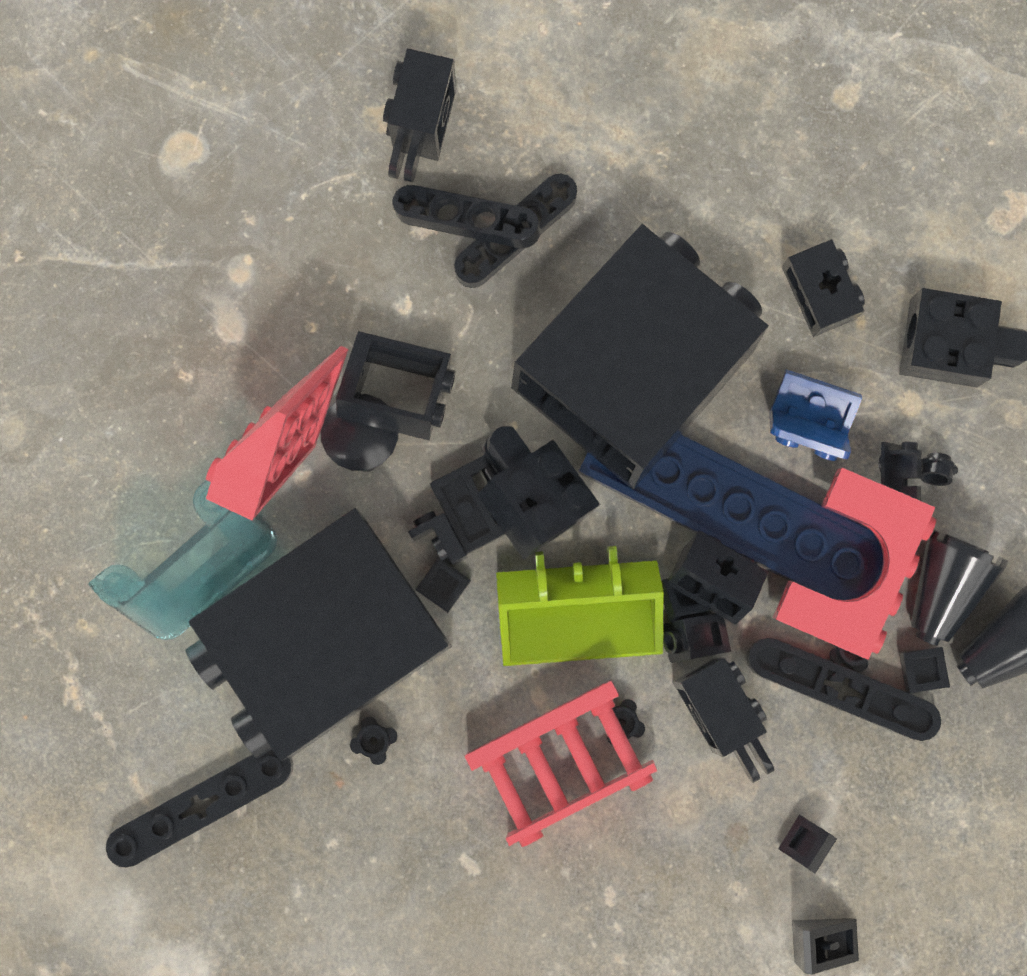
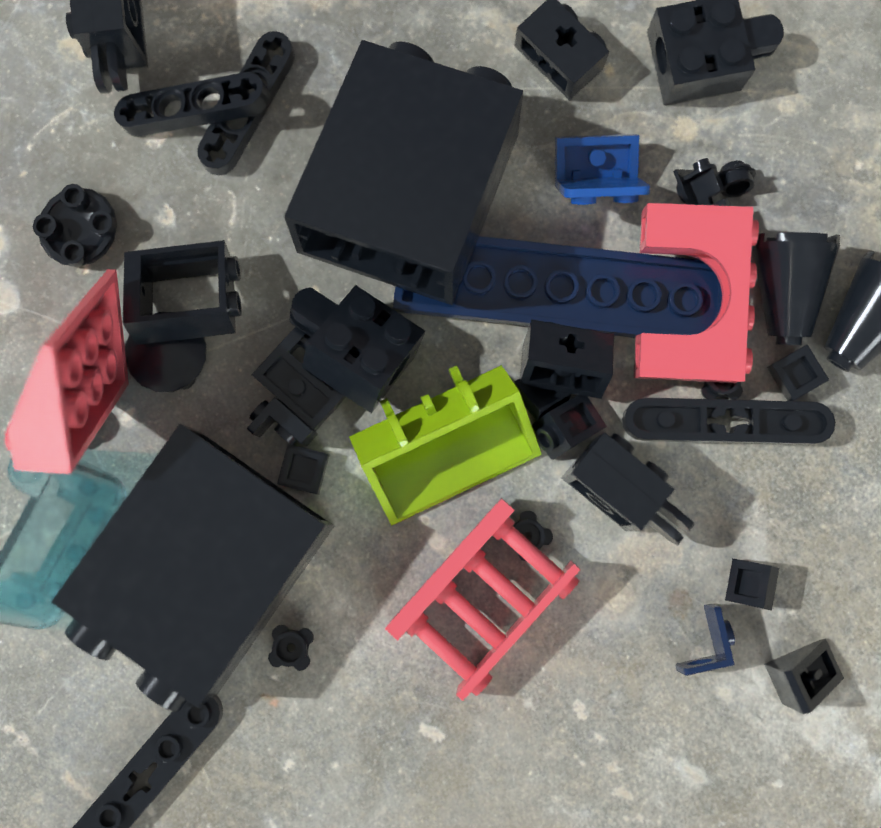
camera: 20 degrees left, 0 degrees up
(321, 287) = (76, 226): none -> black dish
(761, 882) = (722, 638): none -> dark blue bracket

